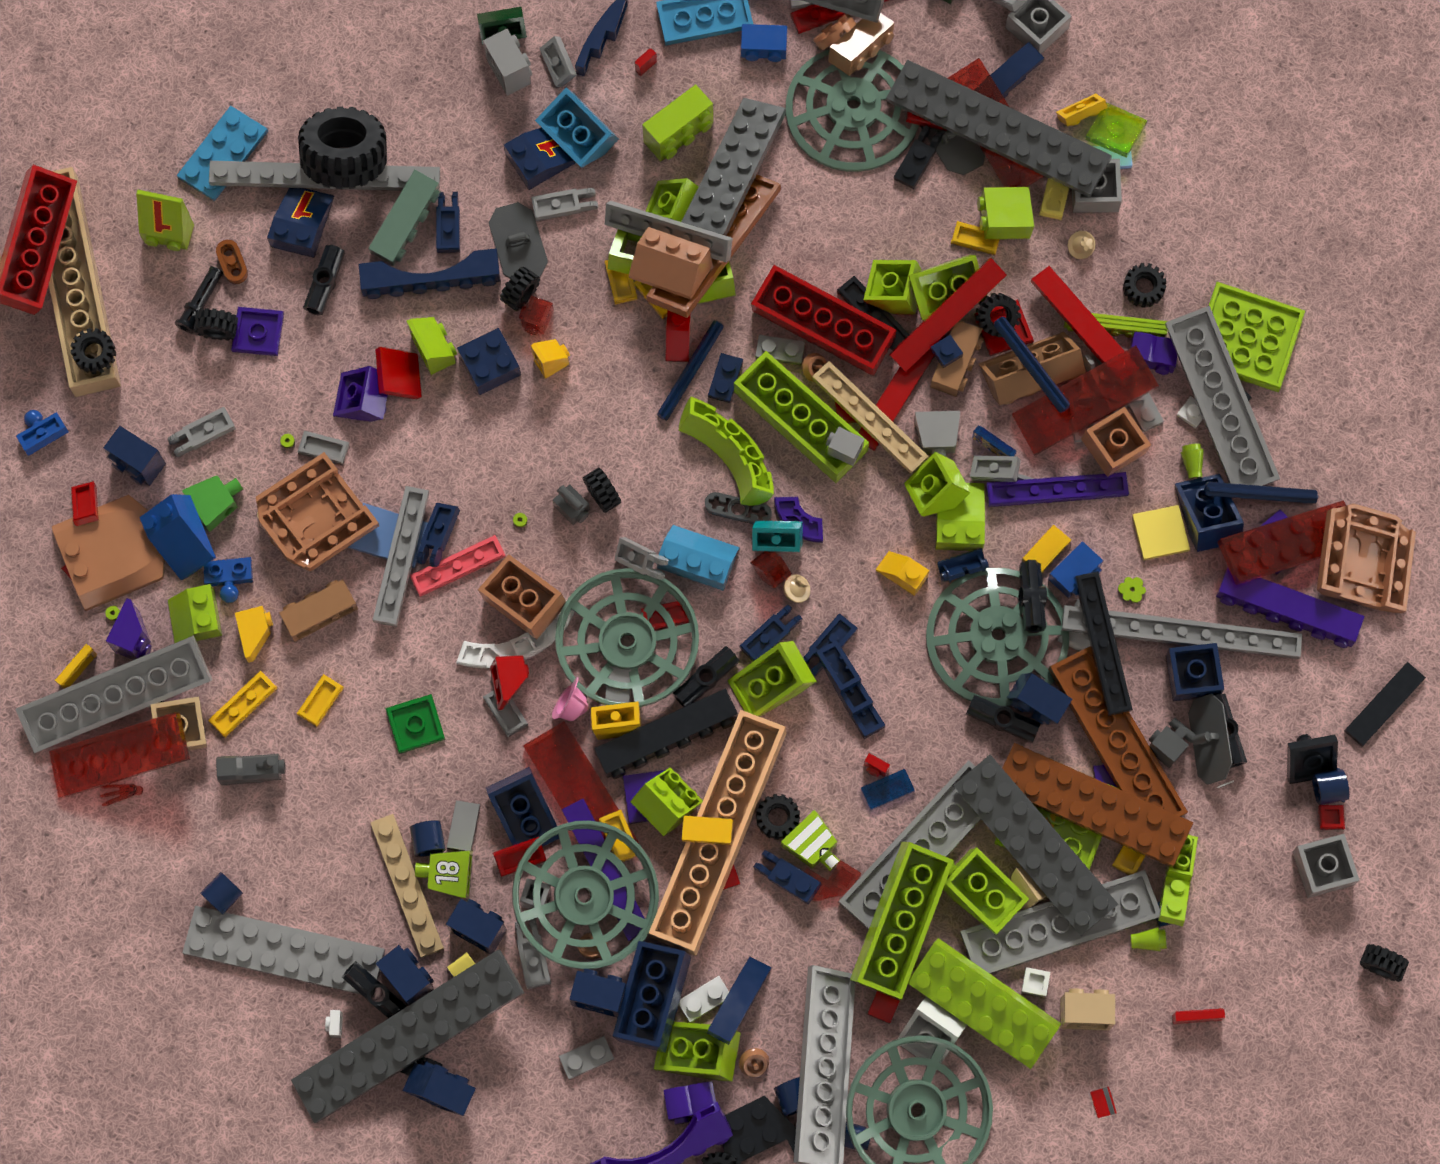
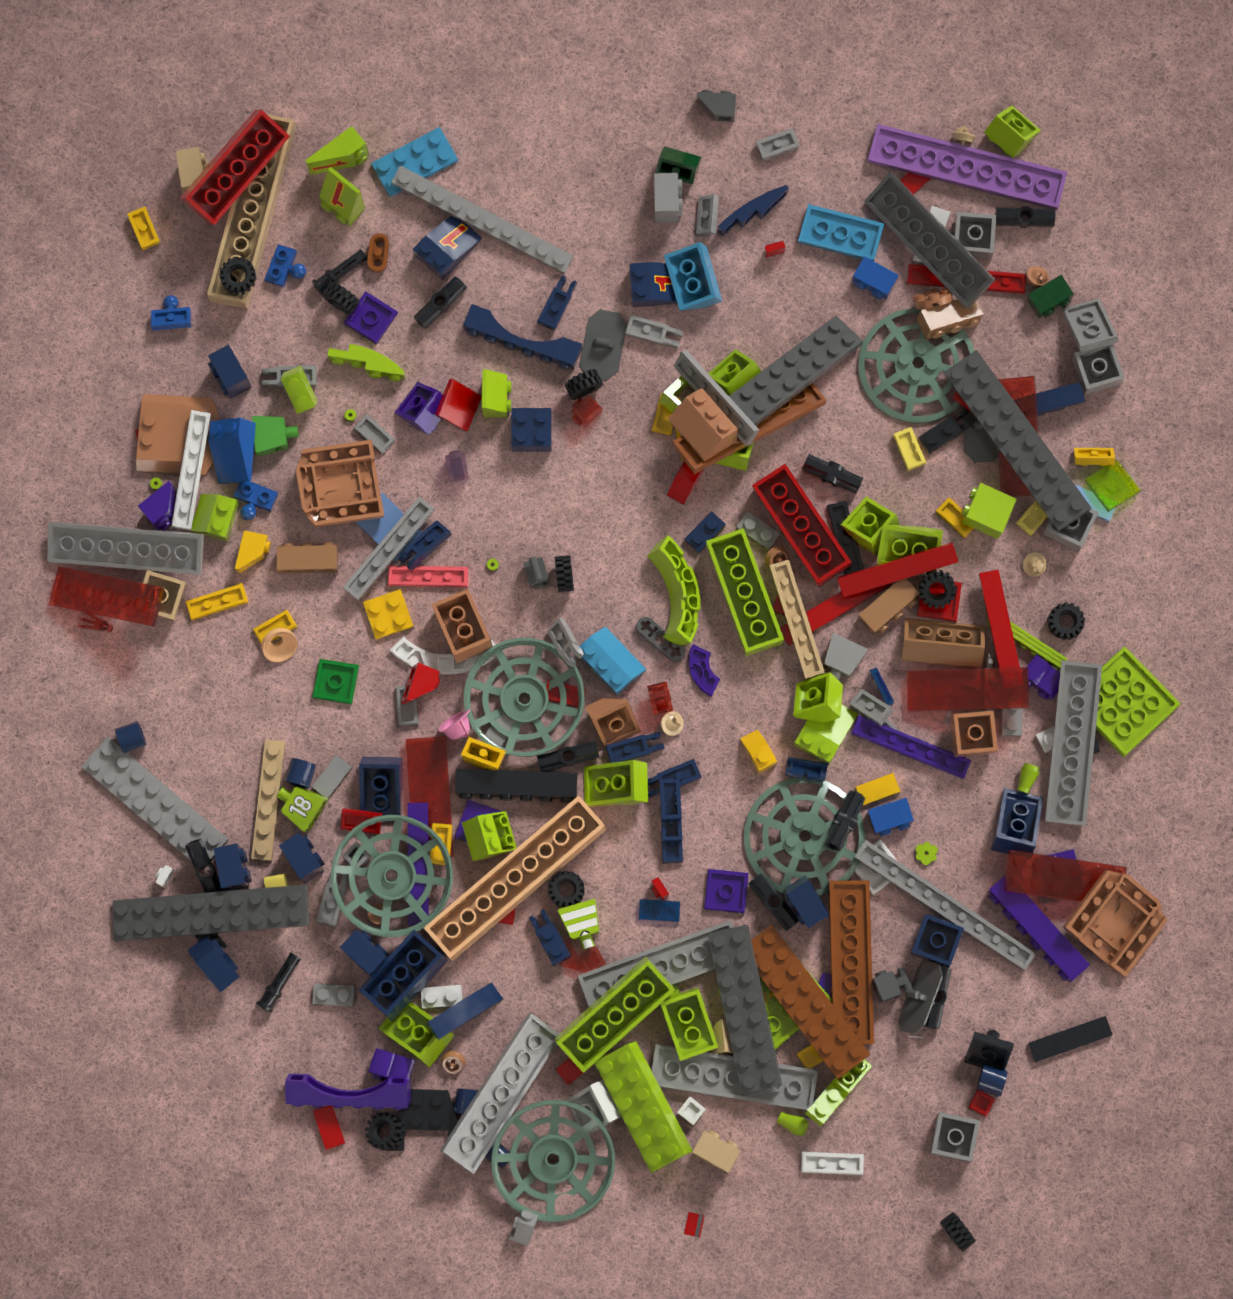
camera: 30 degrees right, 5 degrees up
(76, 667) = (108, 512): yellow tile -> none
(84, 503) = (175, 389): red tile -> none
(135, 323) = (282, 265): none -> blue plate
(143, 171) = (340, 153): none -> lime slope
(144, 579) = (191, 470): none -> white tile
(219, 438) = (299, 389): none -> lime brick
(249, 769) = (196, 654): dark grey piece -> none
(287, 373) = (374, 362): none -> lime slope
(341, 717) = (282, 650): none -> light nougat piece
(342, 167) = (510, 188): black tyre -> none
(404, 218) = (524, 284): sand green brick -> none
(429, 437) = (456, 466): none -> clear purple brick
(435, 626) = (388, 614): none -> yellow plate
(519, 1086) = (273, 991): none -> black pin
(550, 356) = (579, 449): yellow slope -> none
(678, 123) = (772, 313): lime brick -> none
(690, 370) = (681, 512): dark blue axle -> none
(707, 830) = (505, 873): yellow tile -> none
(732, 615) = (612, 720): none -> nougat slope
(777, 536) = (677, 676): teal brick -> none
(826, 255) = (832, 473): none -> black piece
(845, 446) = (762, 633): light grey brick -> none
(890, 193) = (909, 449): none -> light yellow plate
(946, 351) = (882, 597): dark blue plate -> none
(946, 733) = (726, 891): none -> dark purple tile
(1031, 364) = (939, 642): dark blue axle -> none
(1103, 643) = (878, 884): black tile -> none
(1160, 532) = (972, 820): light yellow tile -> none
(1196, 1016) = (800, 1199): red tile -> none
(1212, 961) = (832, 1163): none -> white tile
(1261, 492) = (1064, 829): dark blue axle -> none

